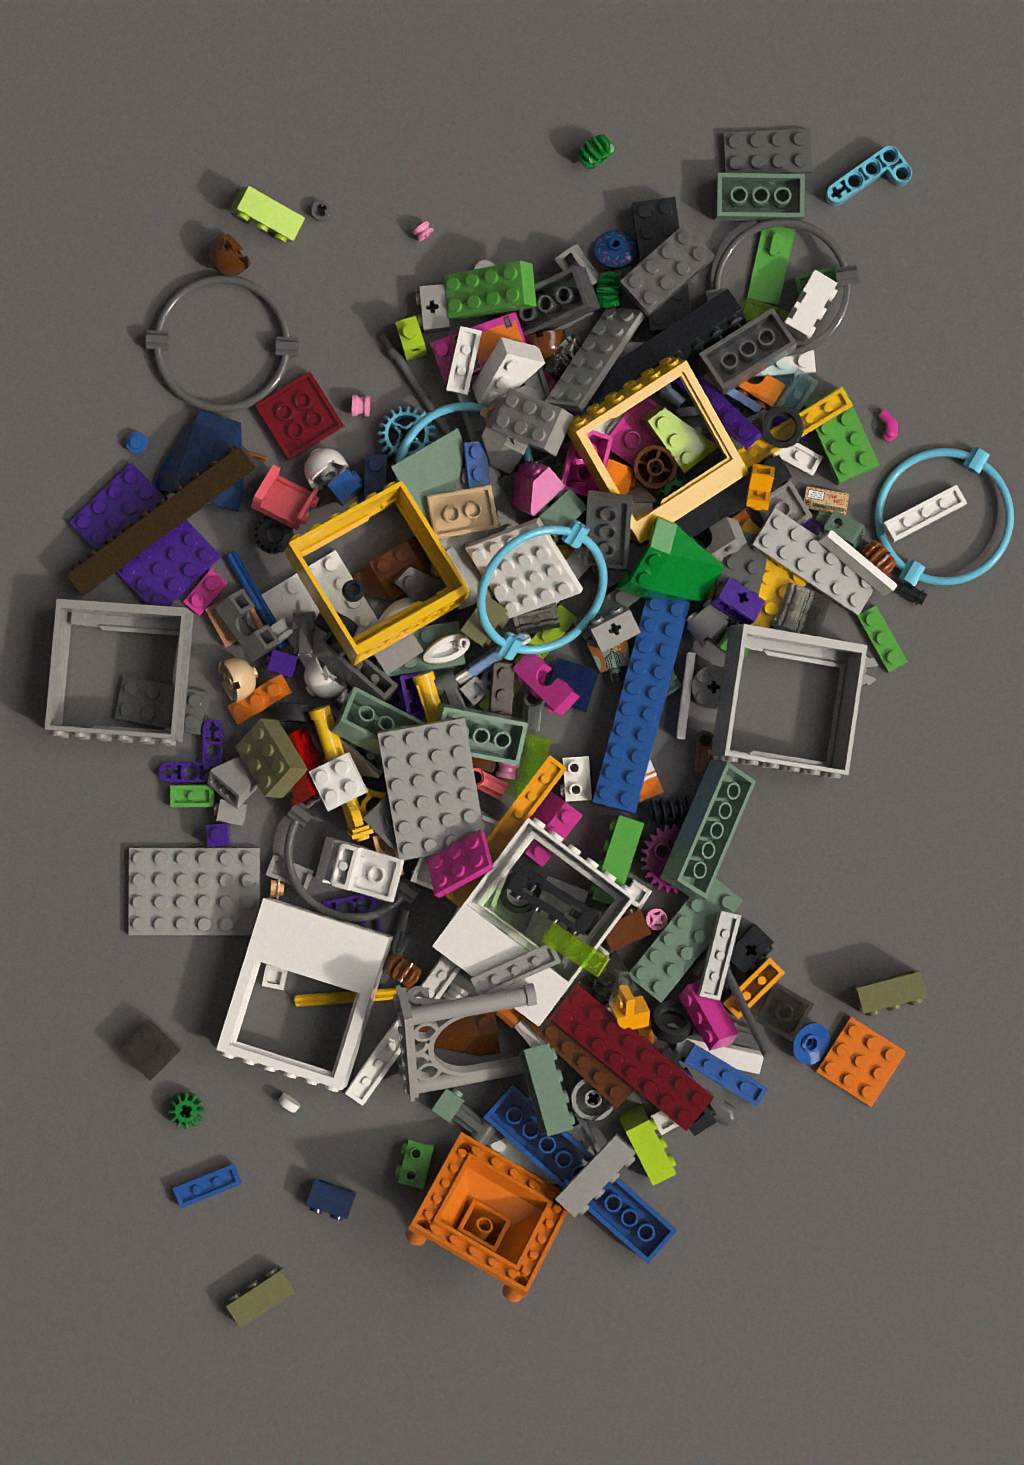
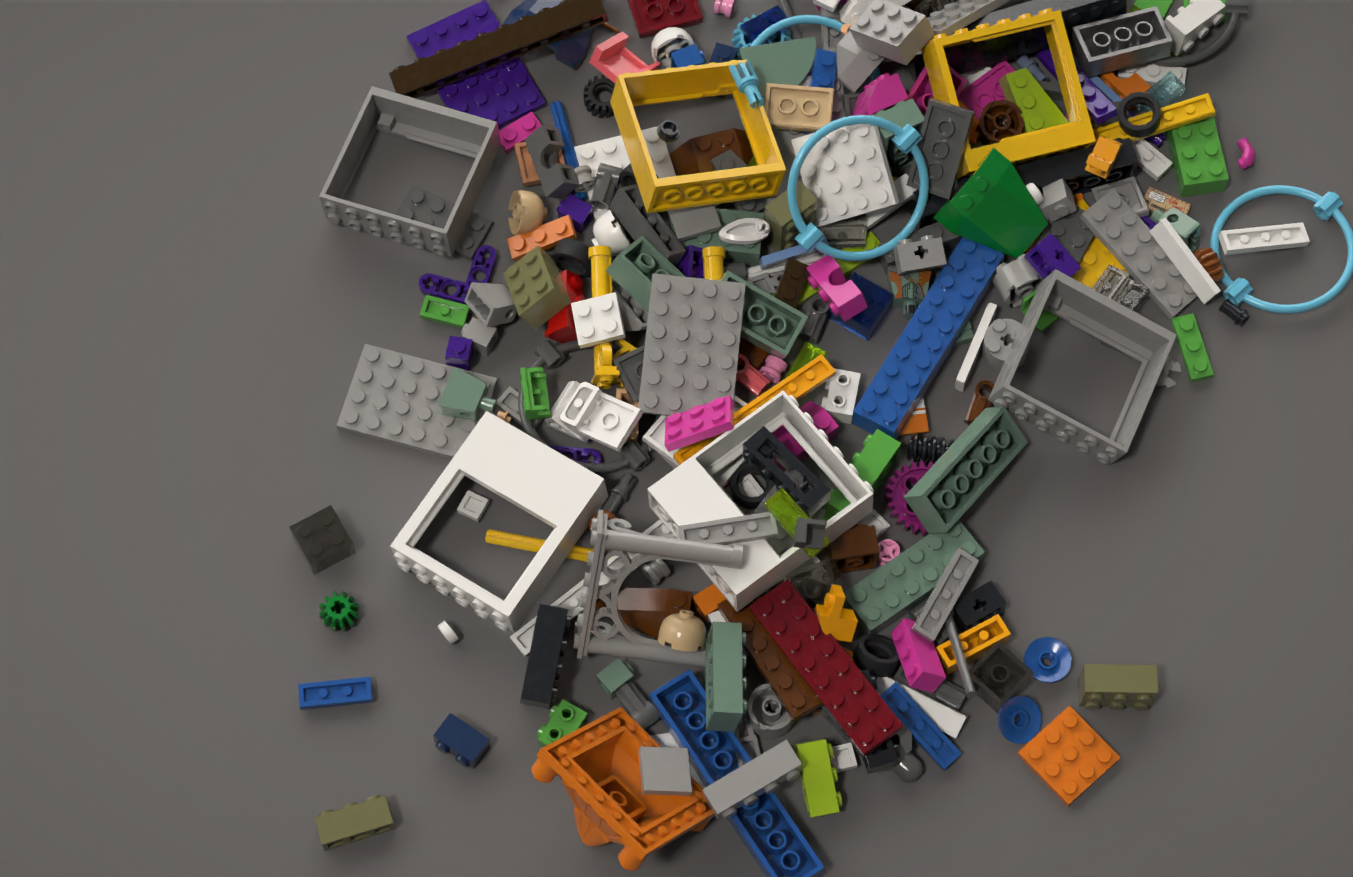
camera: 15 degrees right, 20 degrees down
(238, 880) = (465, 396): none -> sand green torso
(300, 863) = (534, 393): none -> bright green hinge
(381, 1109) = (544, 656): none -> black brick
(404, 422) = (758, 24): none -> clear blue plate
(413, 512) = (747, 82): none -> medium azure arm
(497, 1055) = (683, 631): none -> tan cylinder
(517, 1187) = (665, 771): none -> light grey tile
(589, 960) = (809, 533): none -> dark grey panel
(704, 540) = (1035, 193): none -> white tile
(832, 985) = (1052, 650): none -> blue dish

